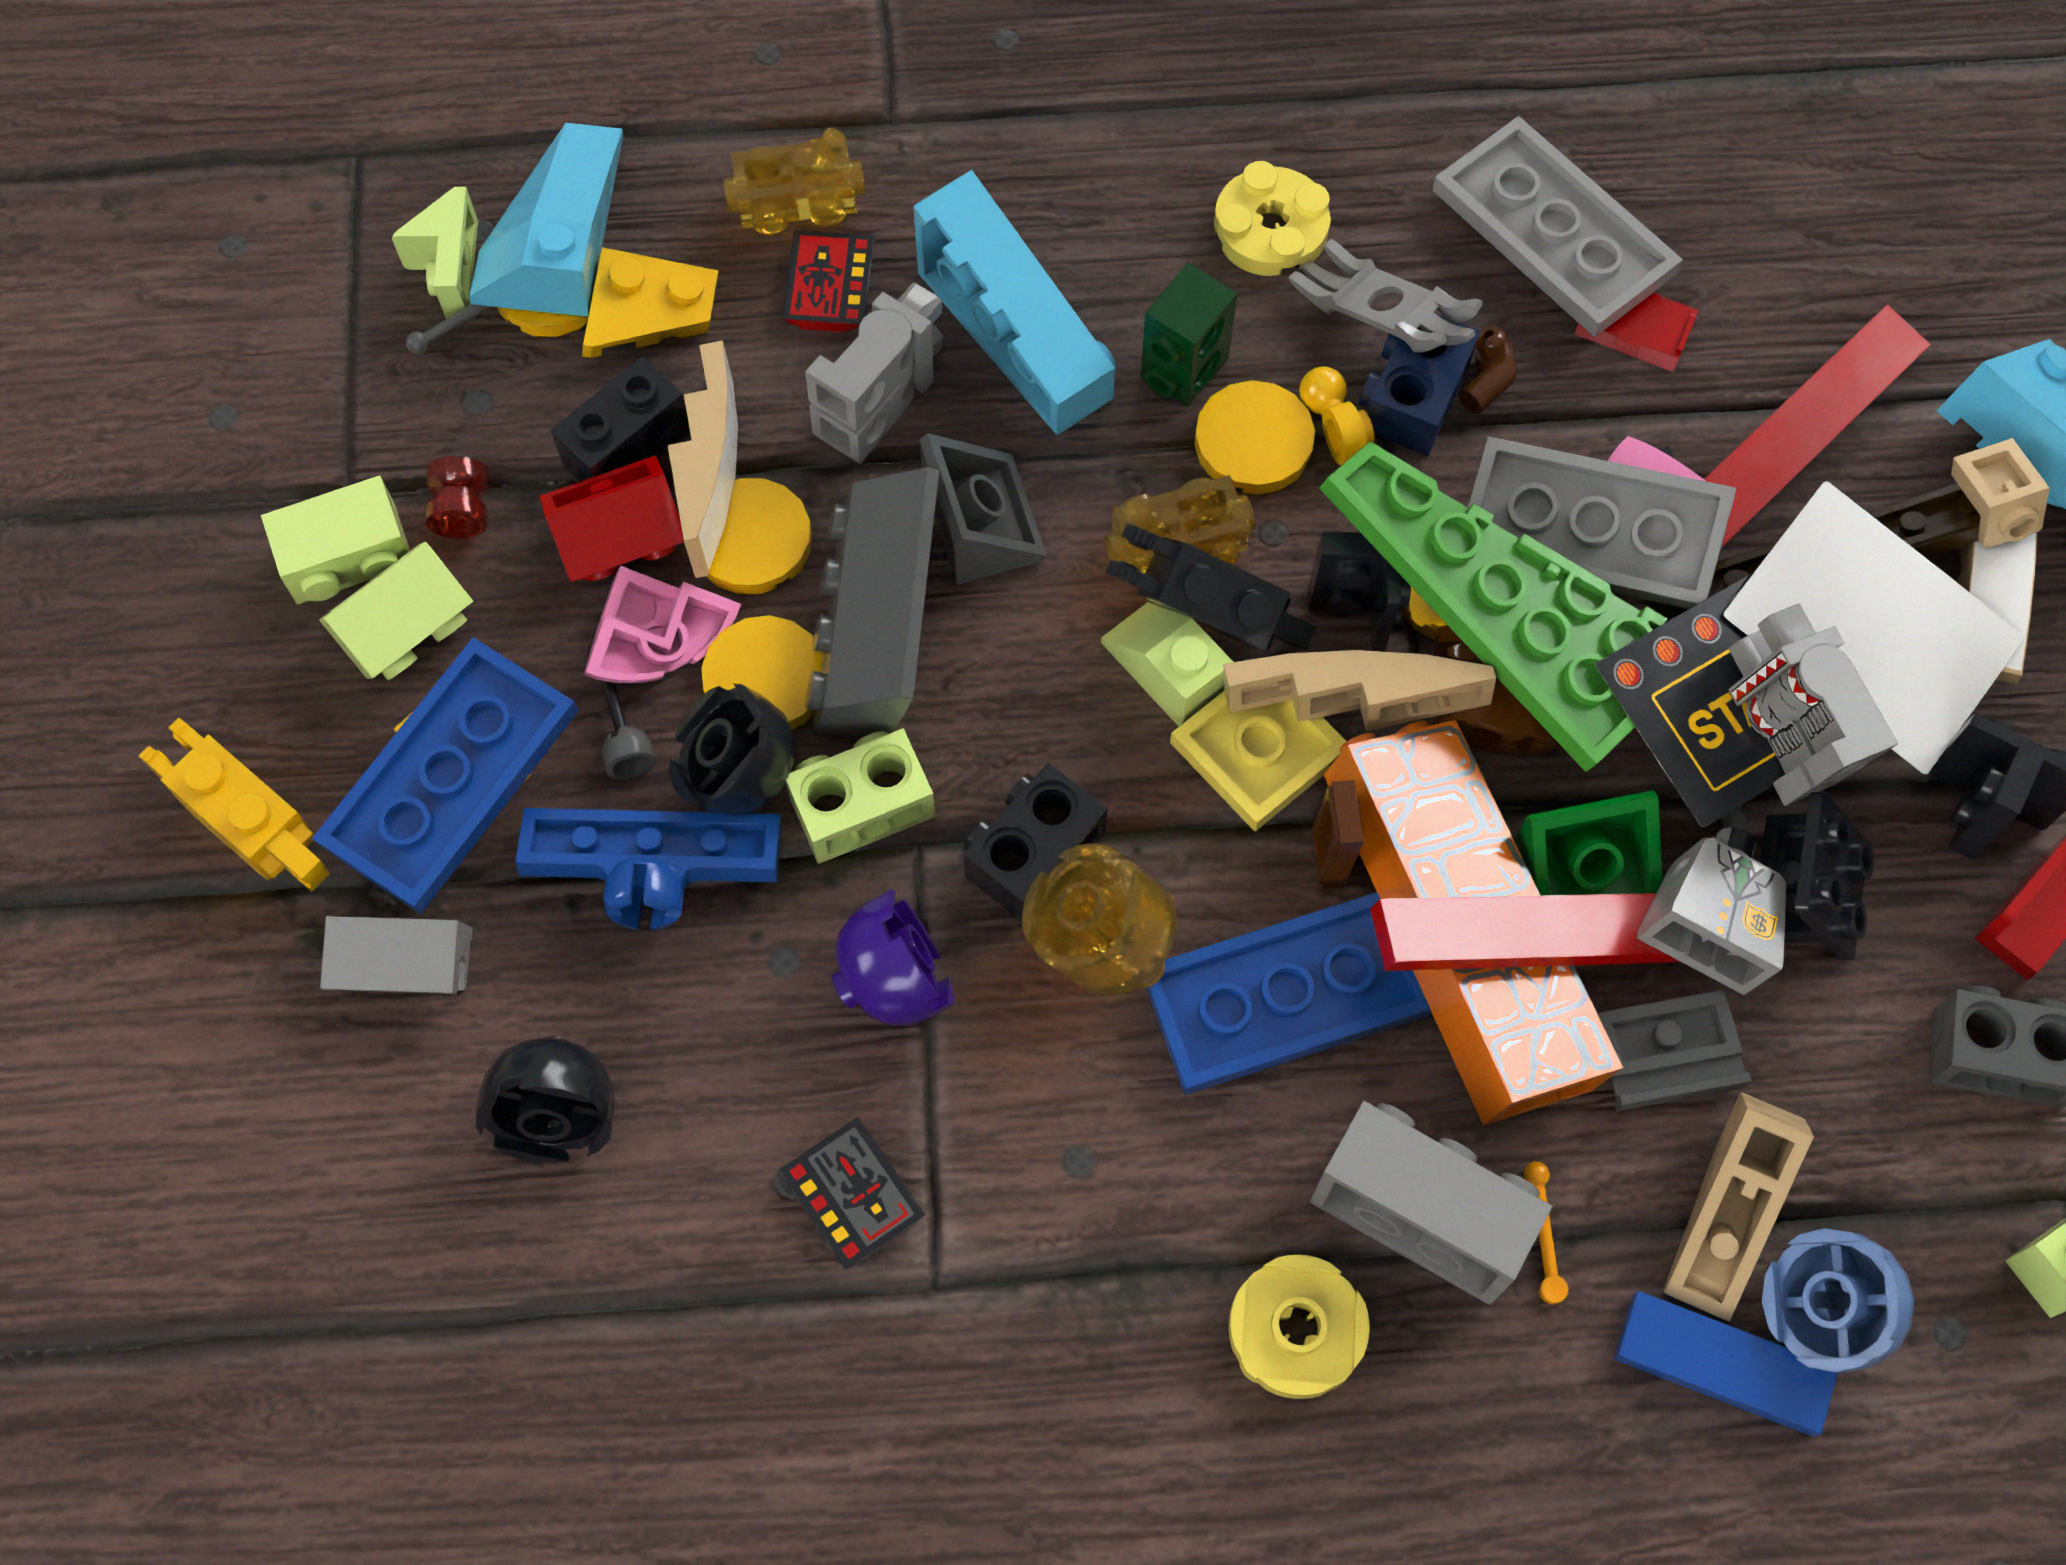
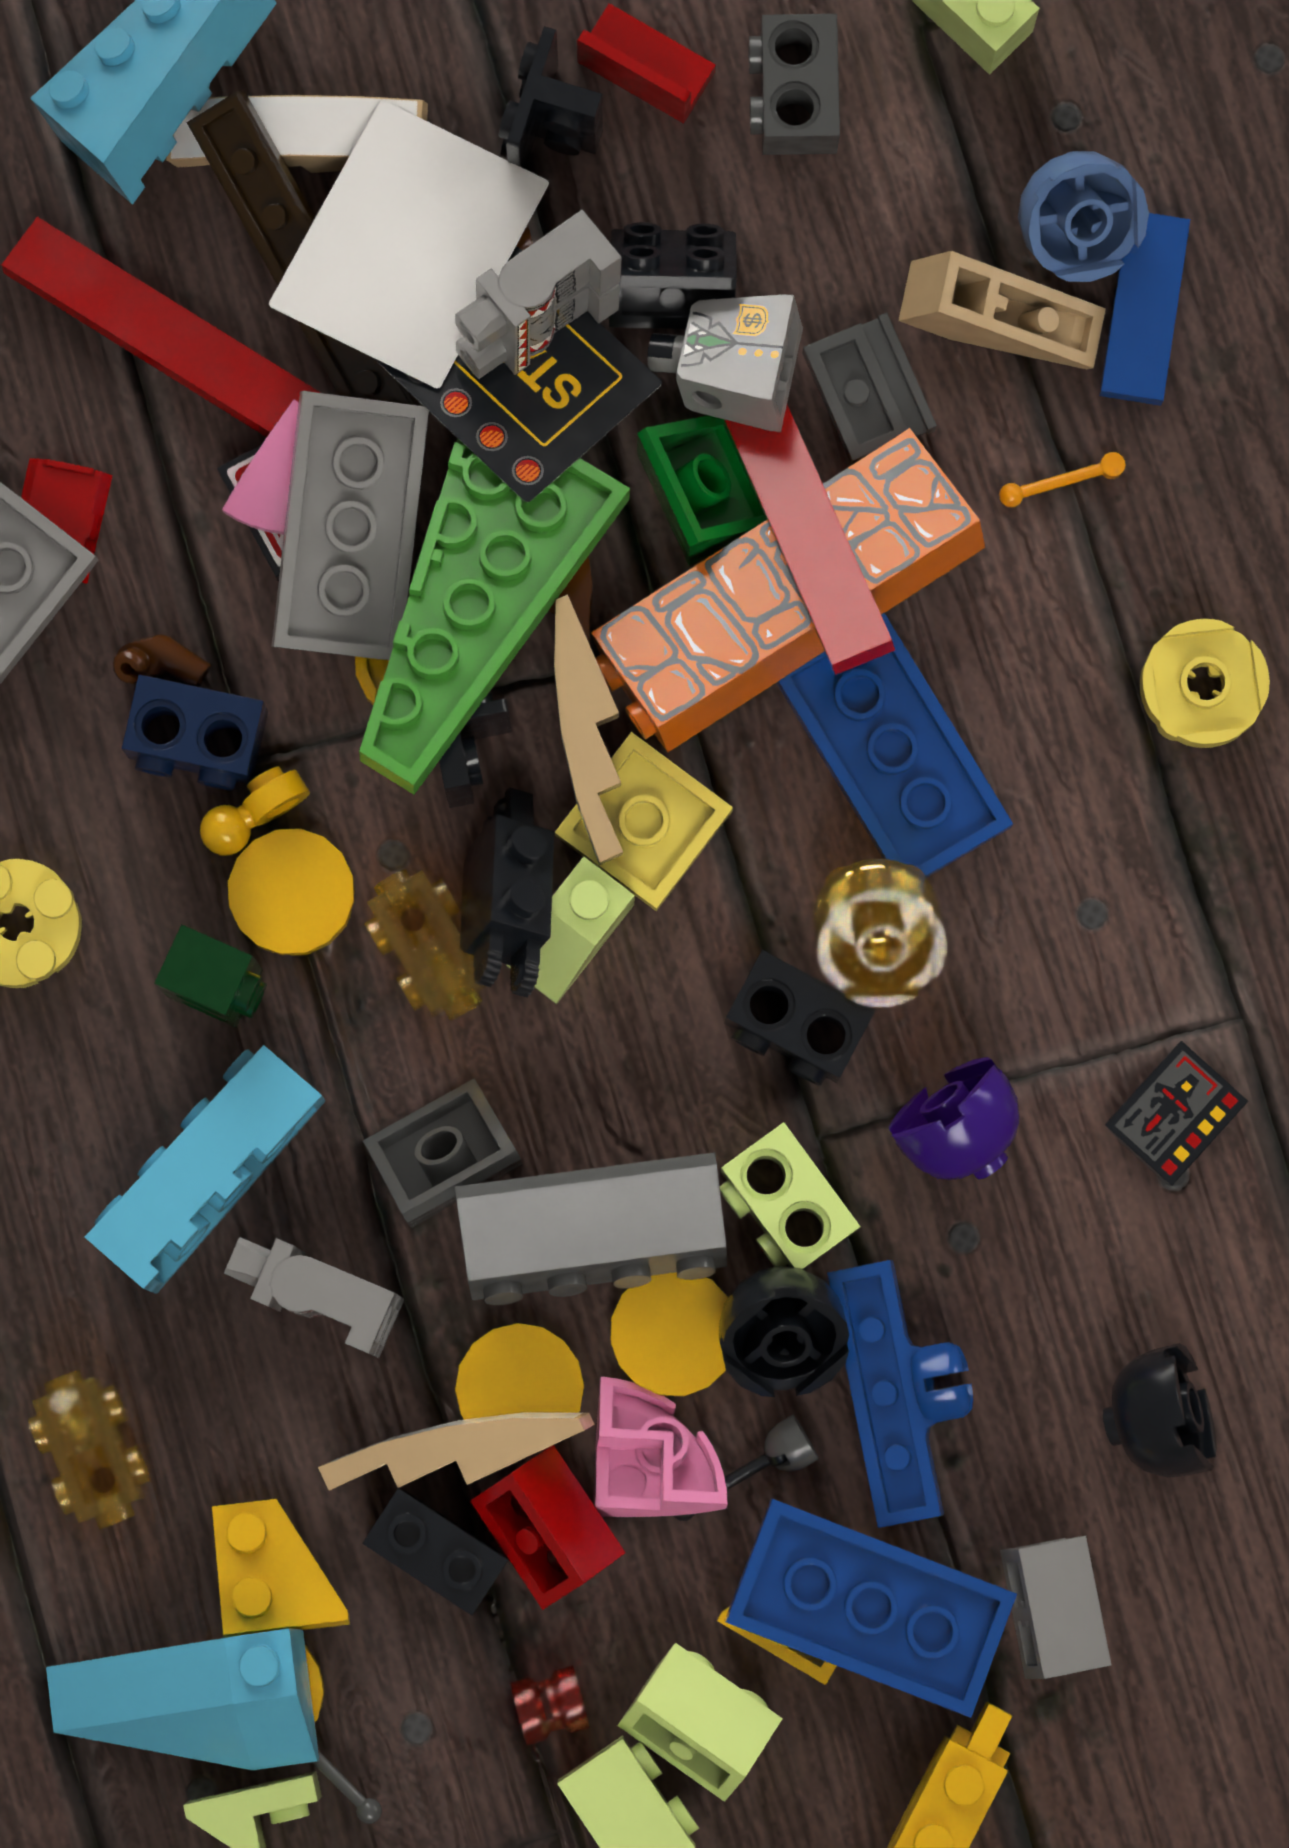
camera: 105 degrees left, 15 degrees up
(828, 280) = (191, 1385): piece -> none
(1337, 834) = (739, 725): reddish brown tile -> none
(1366, 283) = (93, 803): light grey piece -> none
(1431, 1202) = (1076, 581): light grey brick -> none
(2003, 491) = (235, 133): tan bracket -> none

